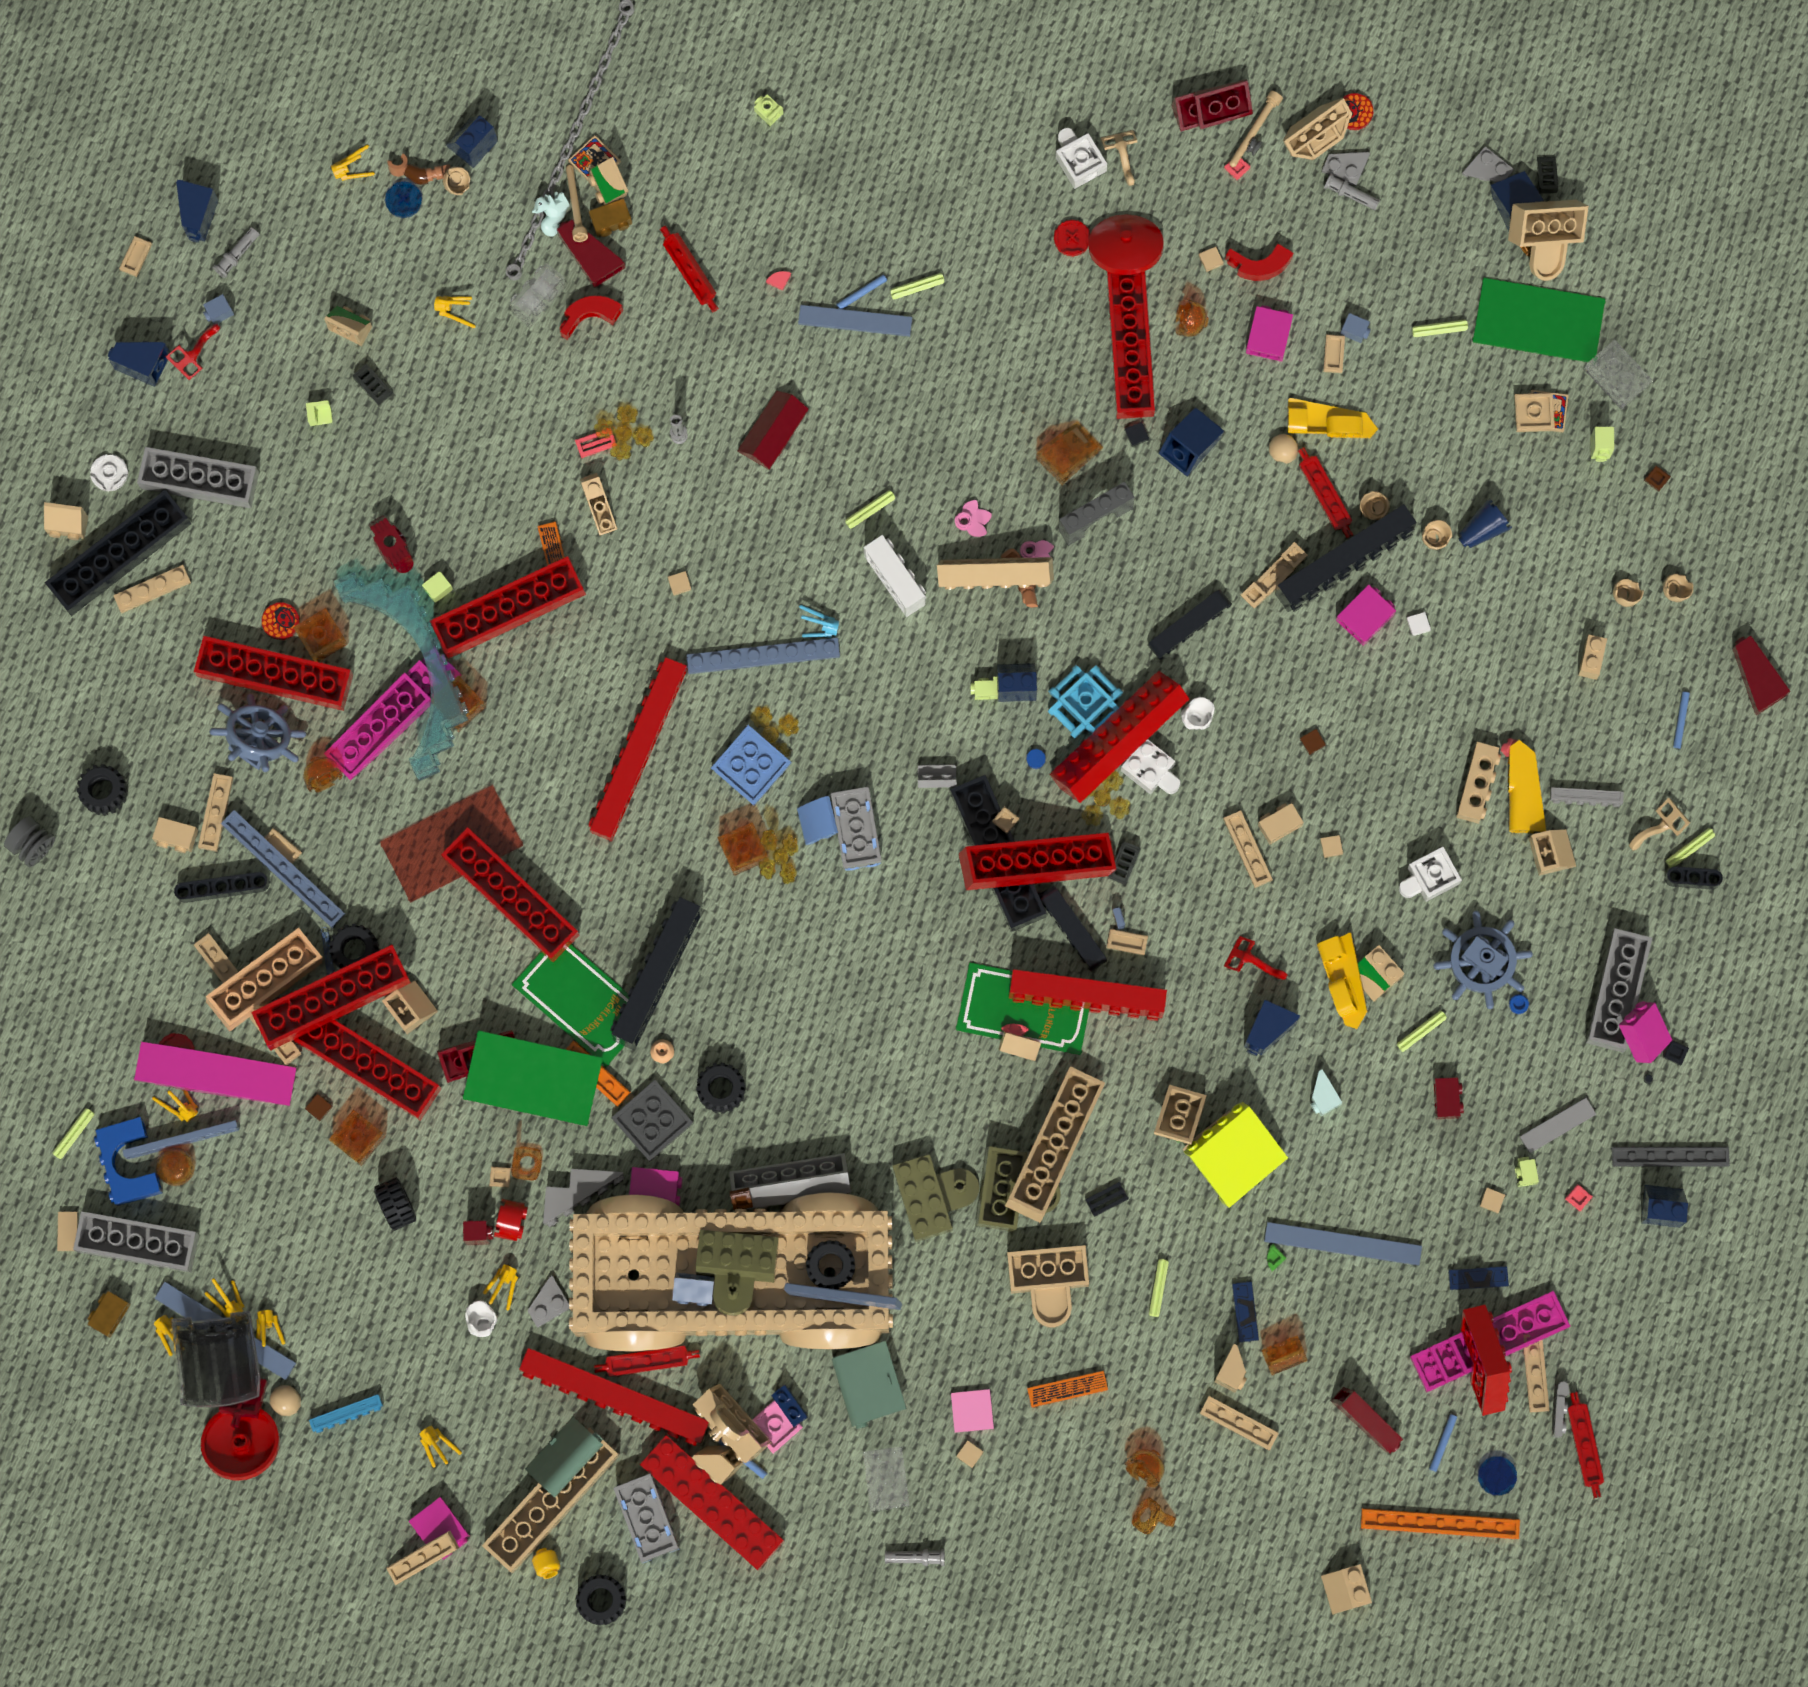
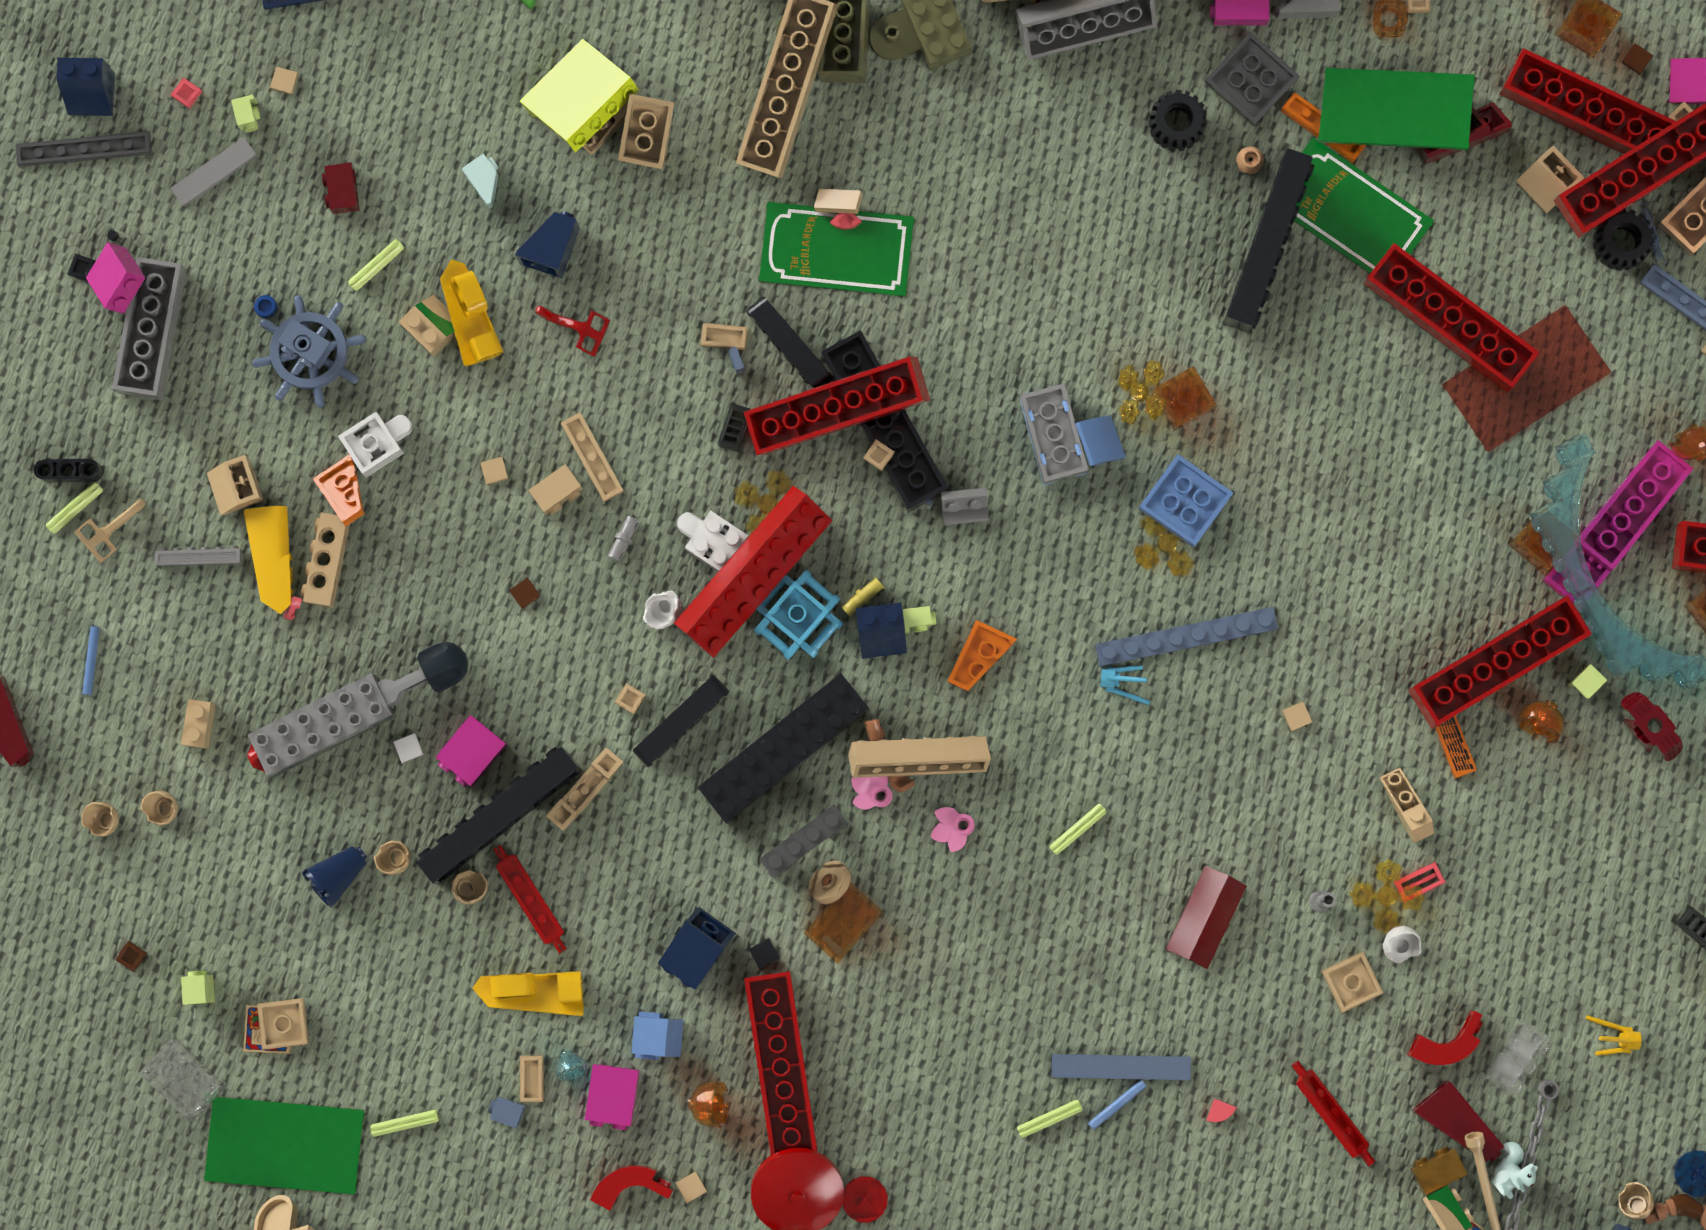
camera: 175 degrees right, 5 degrees up
(478, 559) = (1543, 720): none -> clear orange cylinder
(616, 394) = (1402, 944): none -> white hair
(638, 750) = (1321, 508): red brick -> none
(660, 369) = (1352, 982): none -> tan tile
(894, 575) = (1040, 743): white brick -> none
(937, 656) = (979, 654): none -> orange wing
(1029, 712) = (862, 596): none -> light yellow pin
(1035, 759) = (850, 542): blue tile -> none
(1069, 480) = (840, 881): none -> tan tile
(1087, 994) = (764, 263): red brick -> none
(1106, 593) = (783, 748): none -> black brick
(1121, 1191) = (718, 33): black tile -> none
(1226, 778) = (623, 539): none -> light grey pin
(1229, 375) = (656, 1036): none -> medium blue plate
(1230, 647) = (630, 698): none -> tan tile
(1283, 448) = (584, 951): tan hair -> none
(1302, 359) = (570, 1066): none -> clear light blue brick
(1343, 1244) = (451, 16): sand blue tile -> none
(1461, 837) = (342, 490): none -> wing
(1465, 653) = (349, 712): none -> light grey piece

